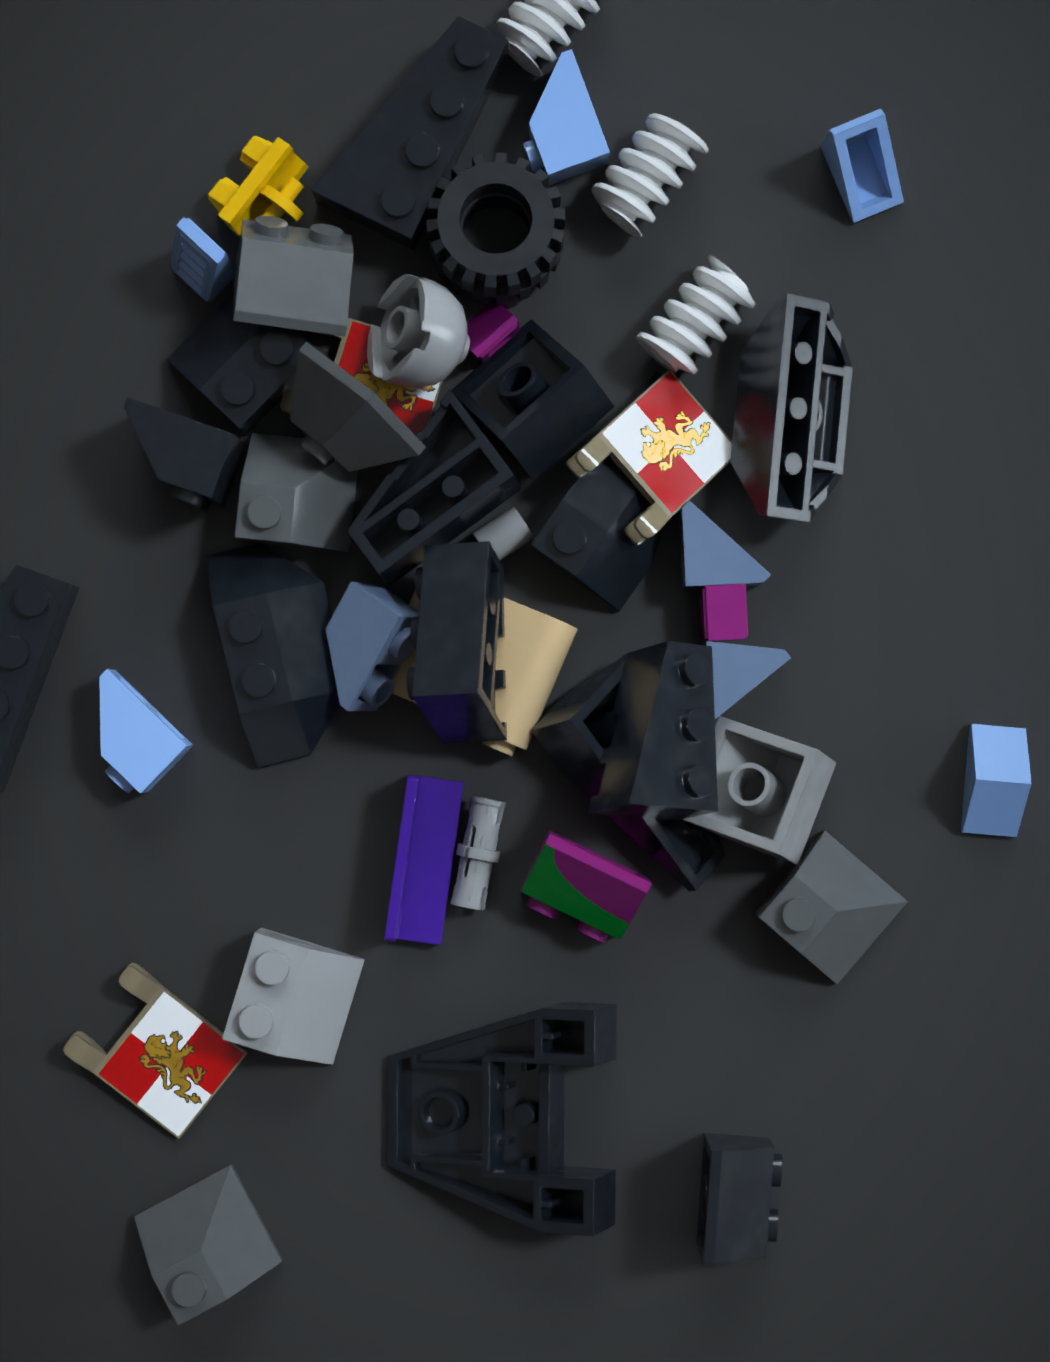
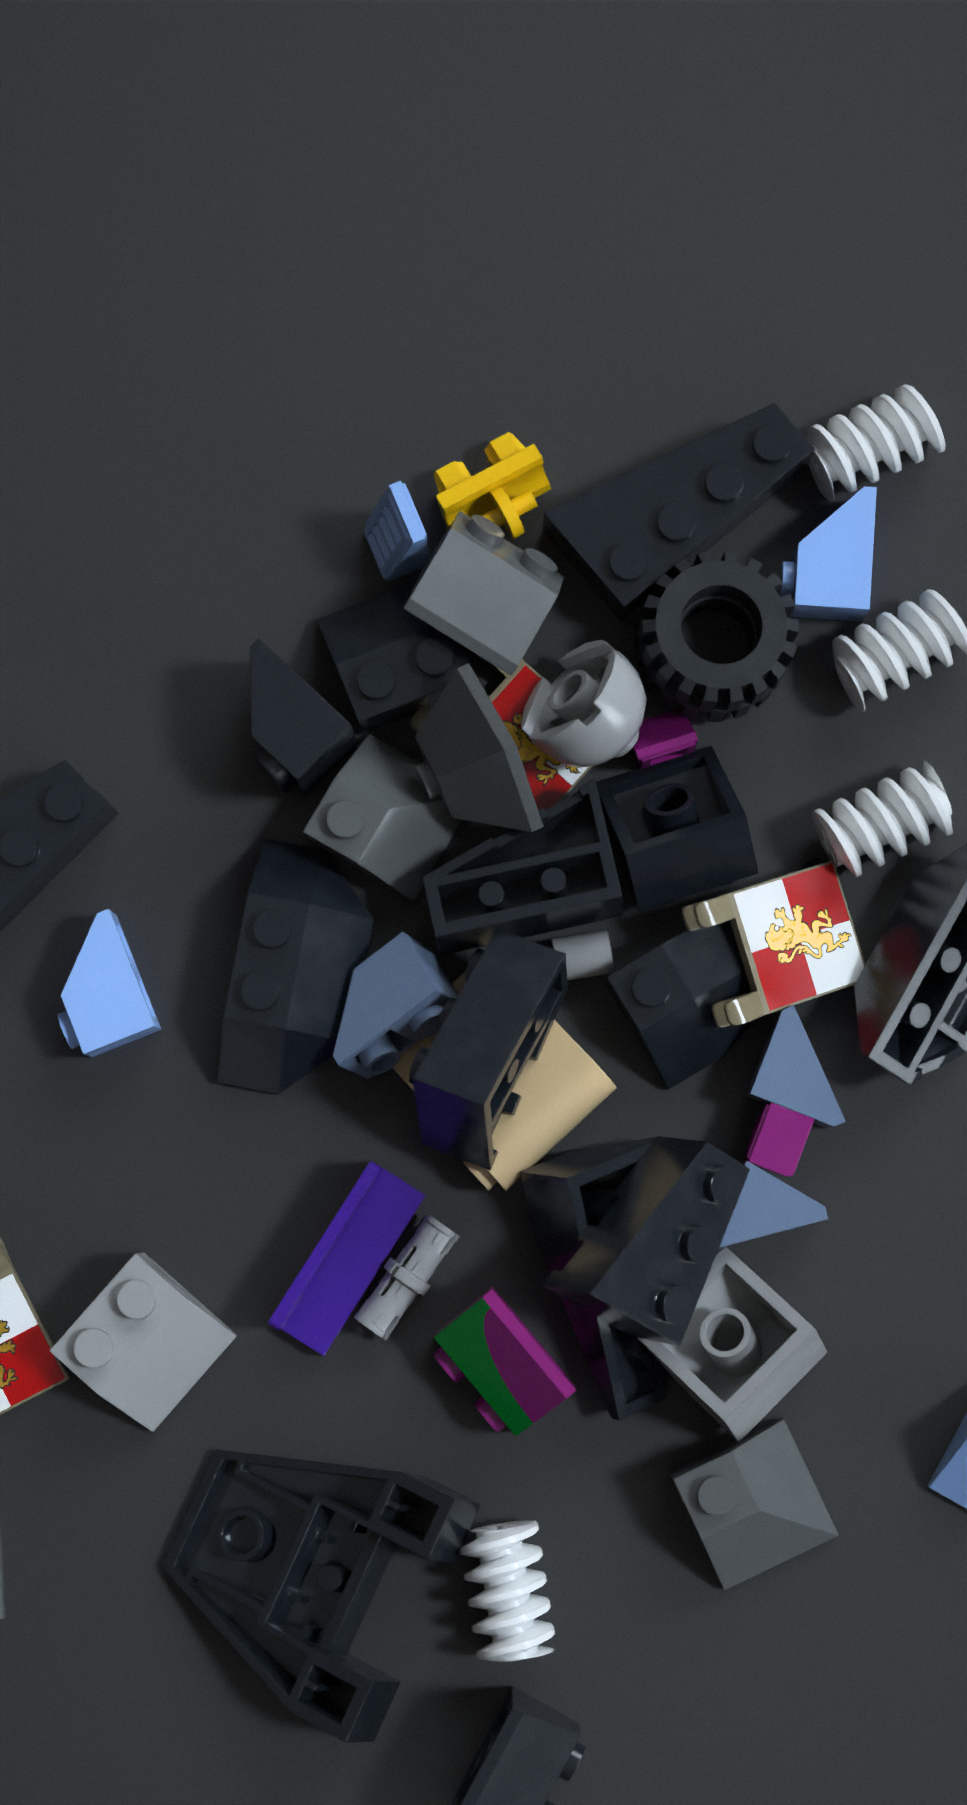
camera: 25 degrees right, 5 degrees down
(668, 1062) = (508, 1591): none -> white piece

